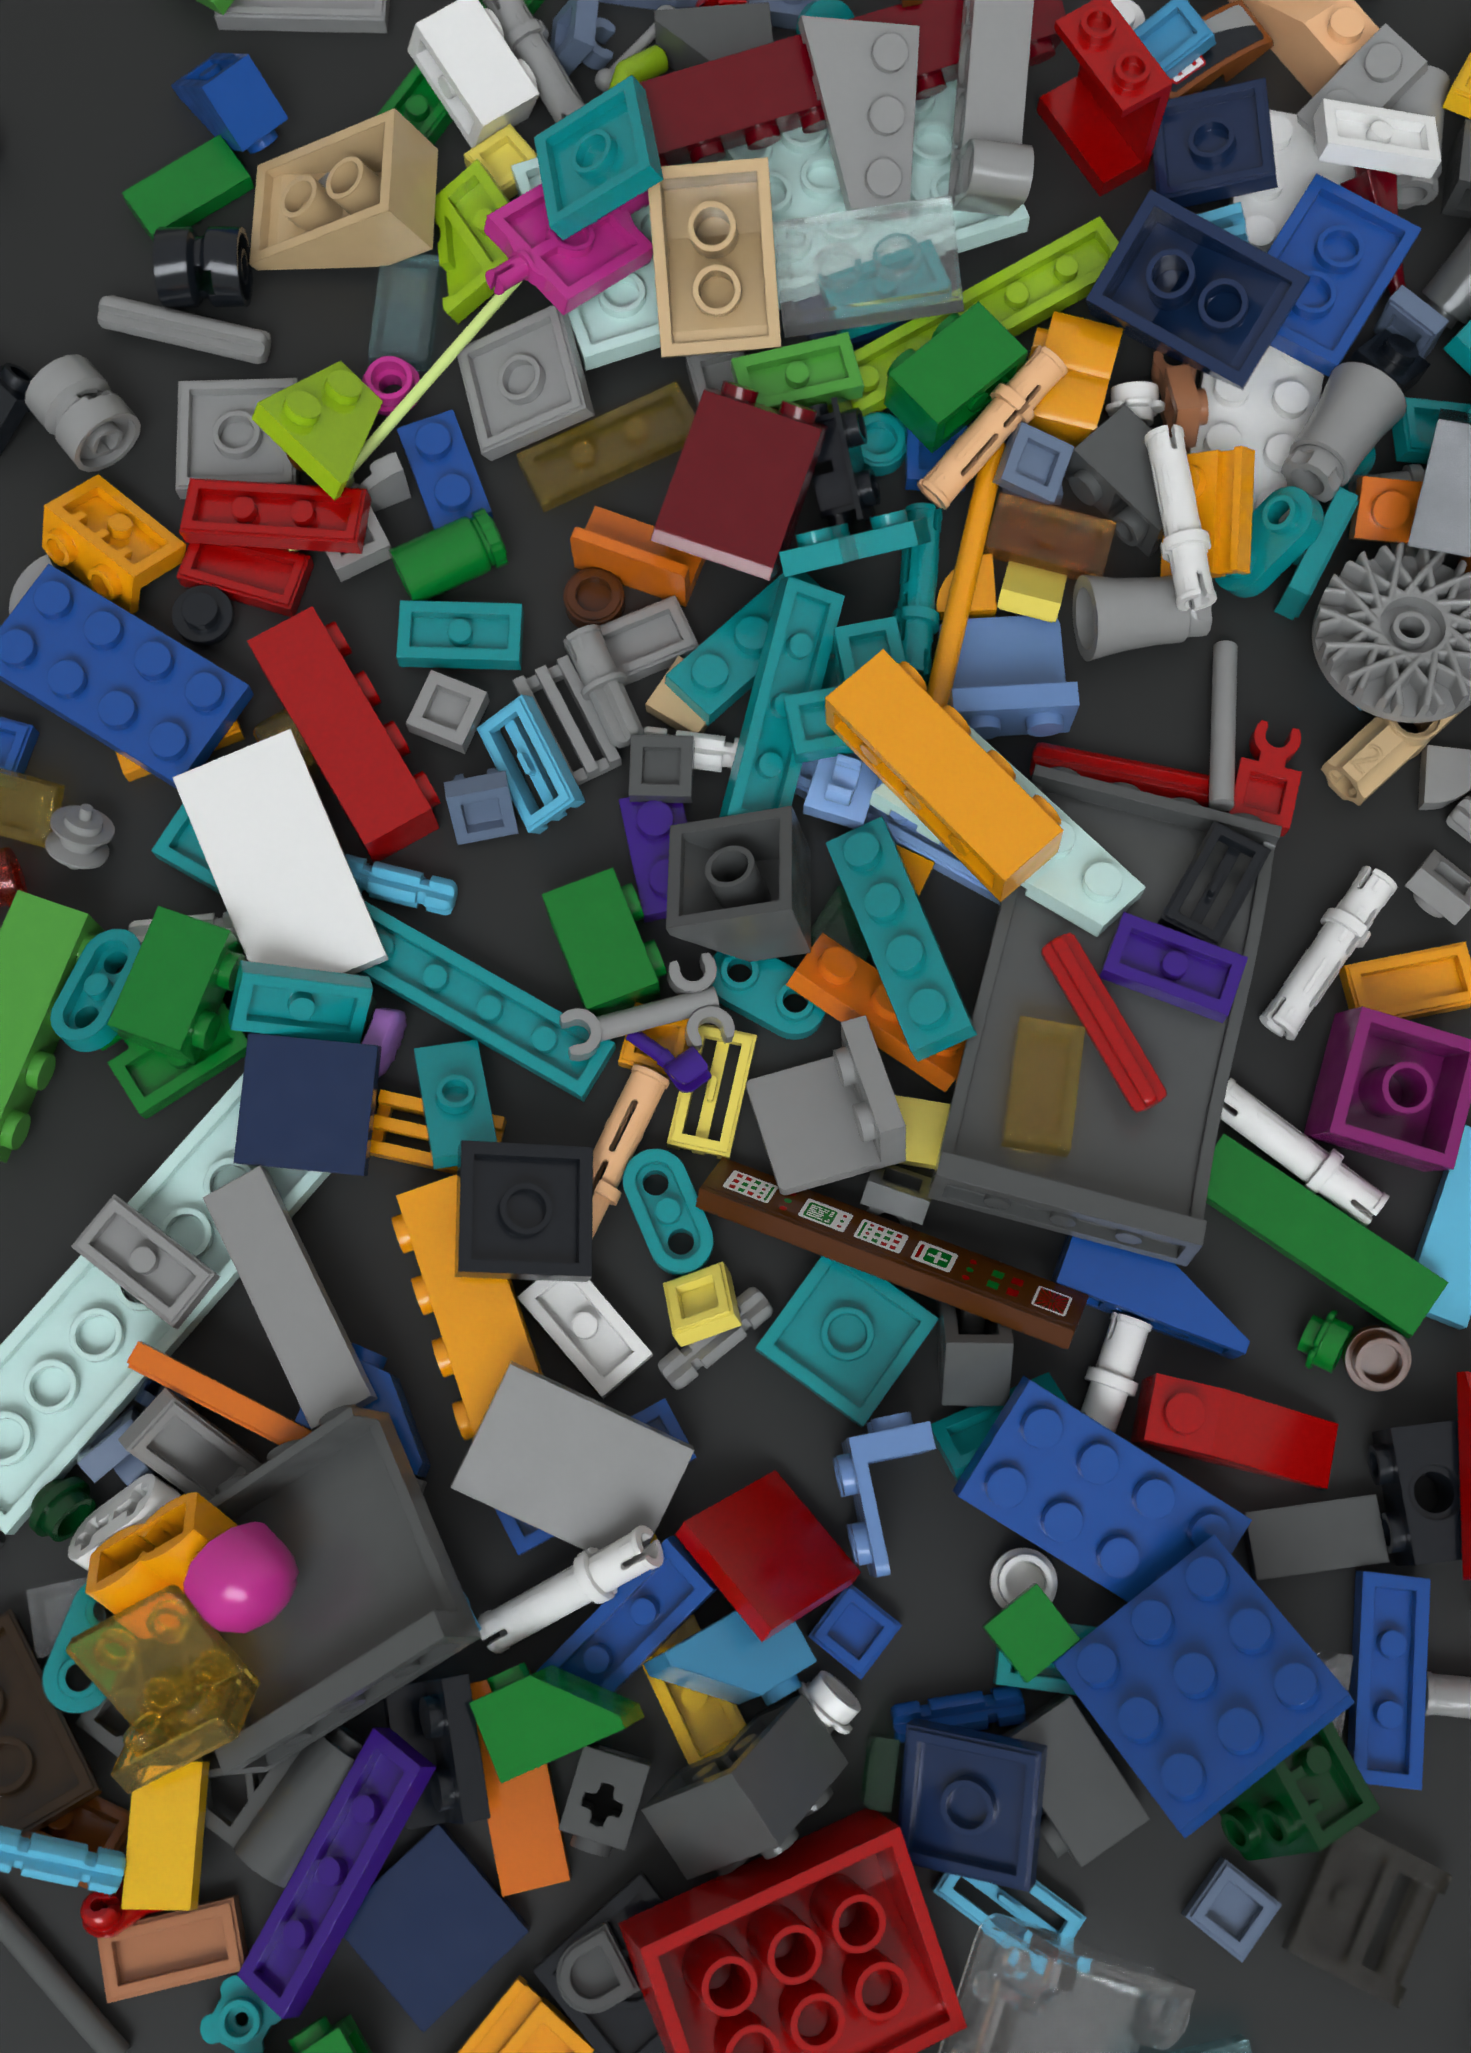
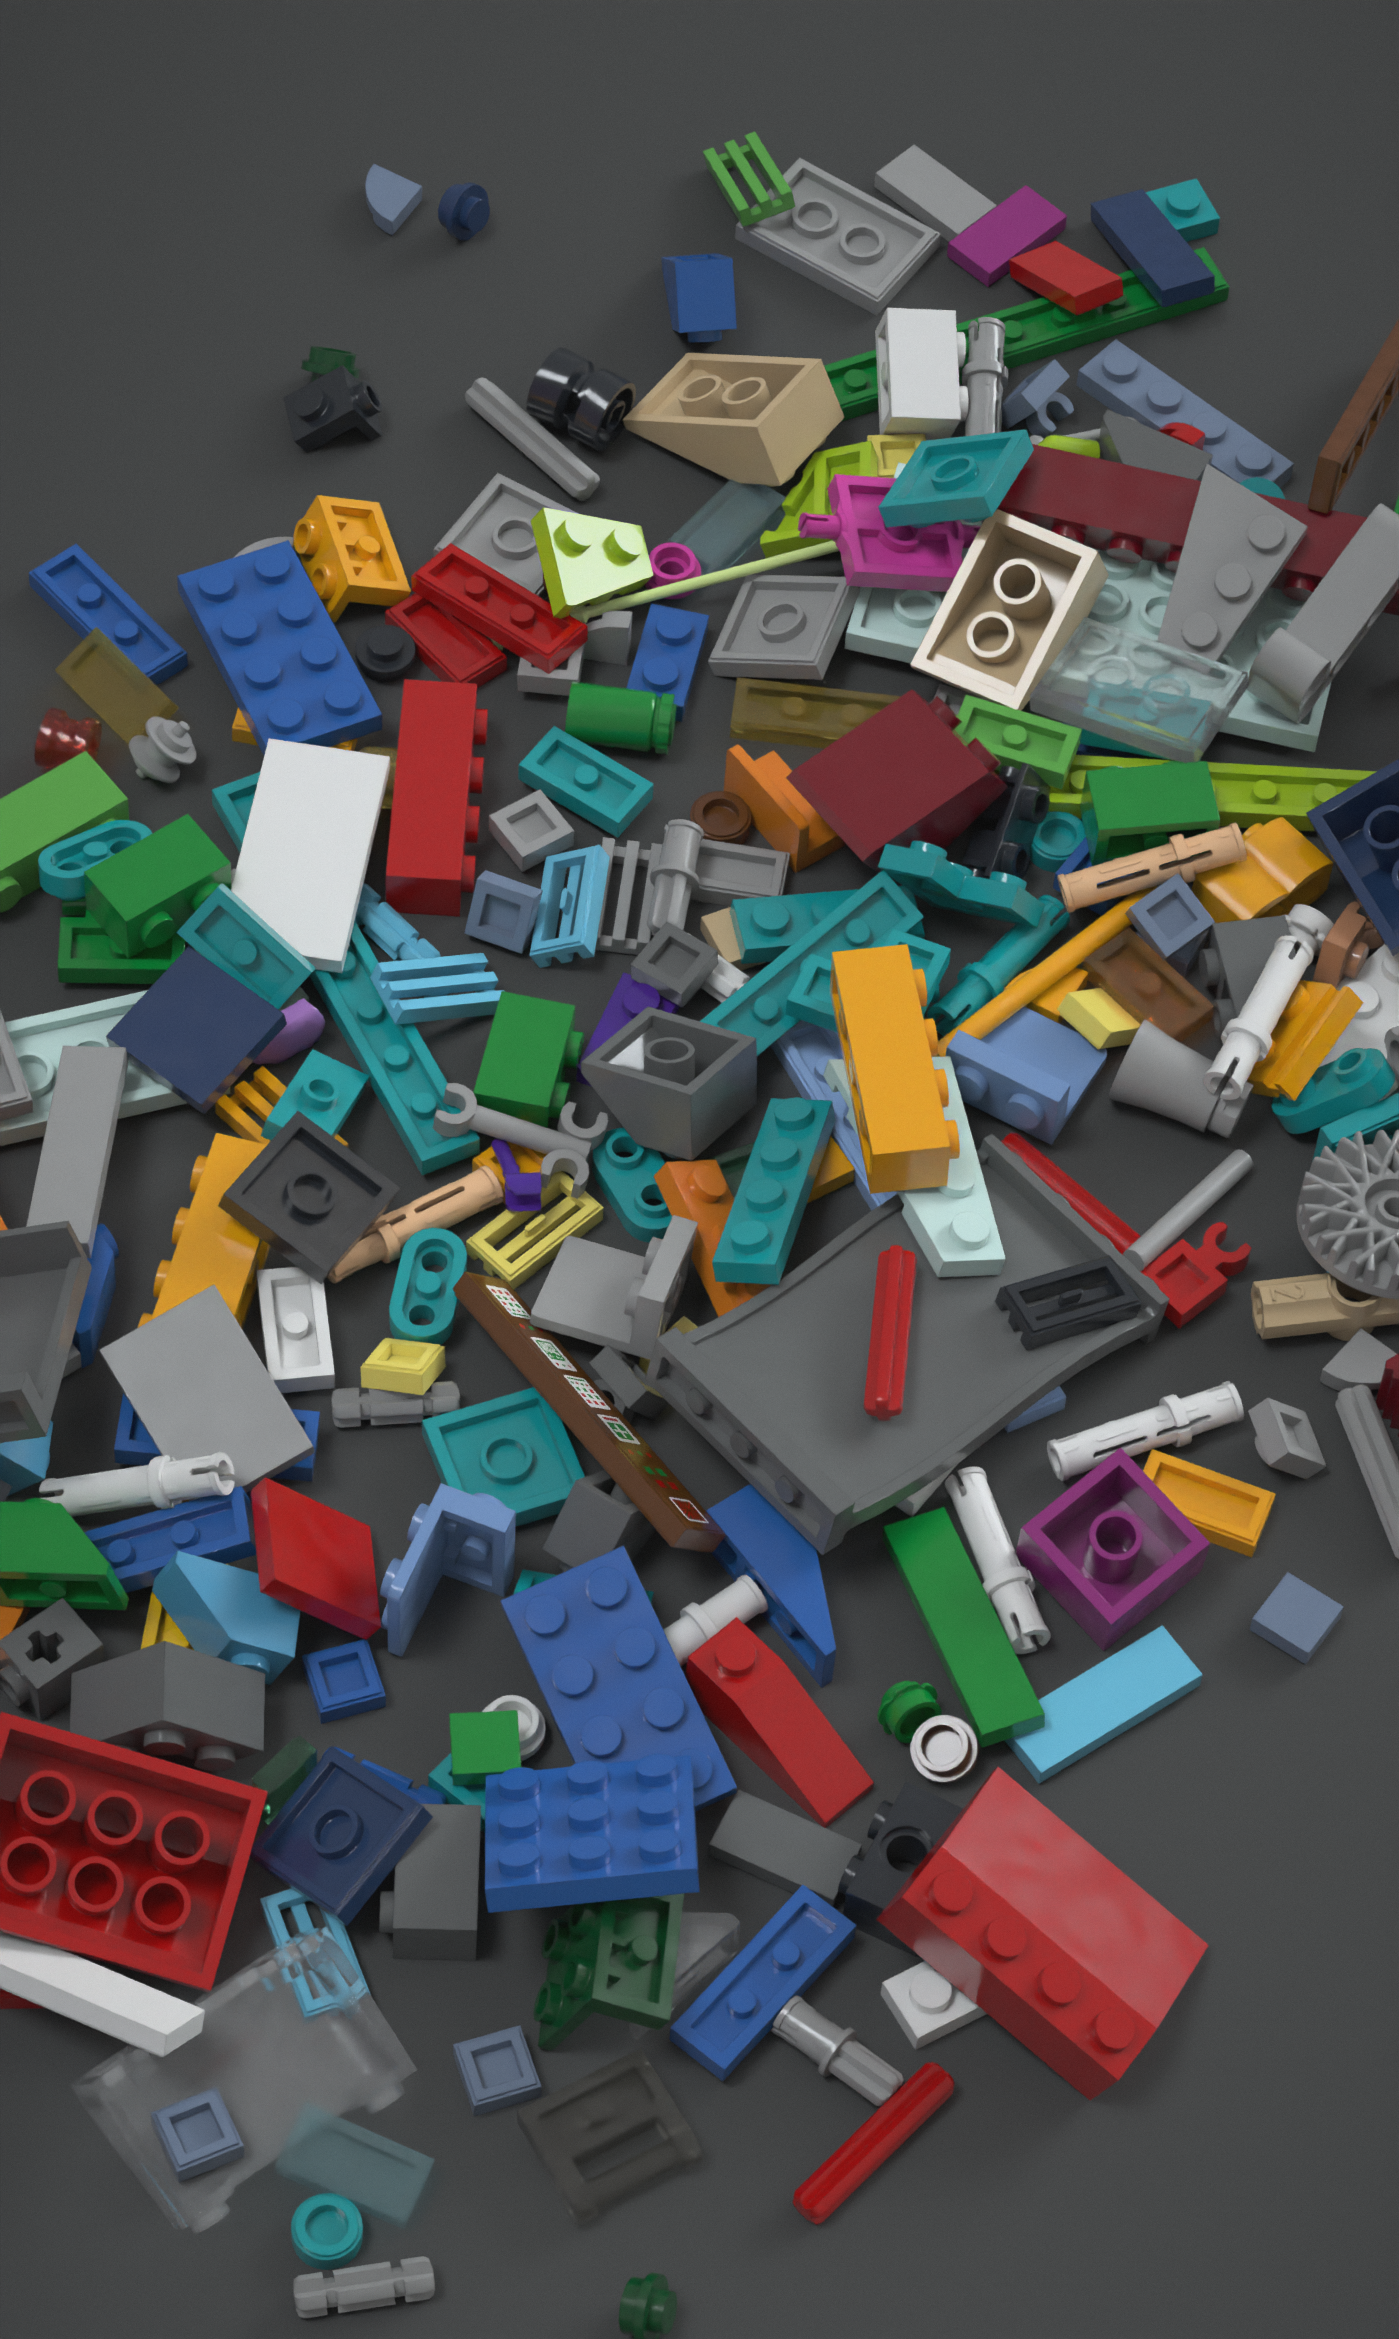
camera: 30 degrees right, 20 degrees down
(82, 413) = (400, 450): light grey wheel -> none
(189, 188) = (619, 338): green tile -> none
(504, 885) = (434, 980): none -> medium azure tile
(831, 1702) = (283, 1712): white plate -> none
(841, 791) = (804, 1063): light blue tile -> none
(1043, 1086) = (801, 1347): clear yellow tile -> none
(1173, 967) = (980, 1327): dark purple plate -> none

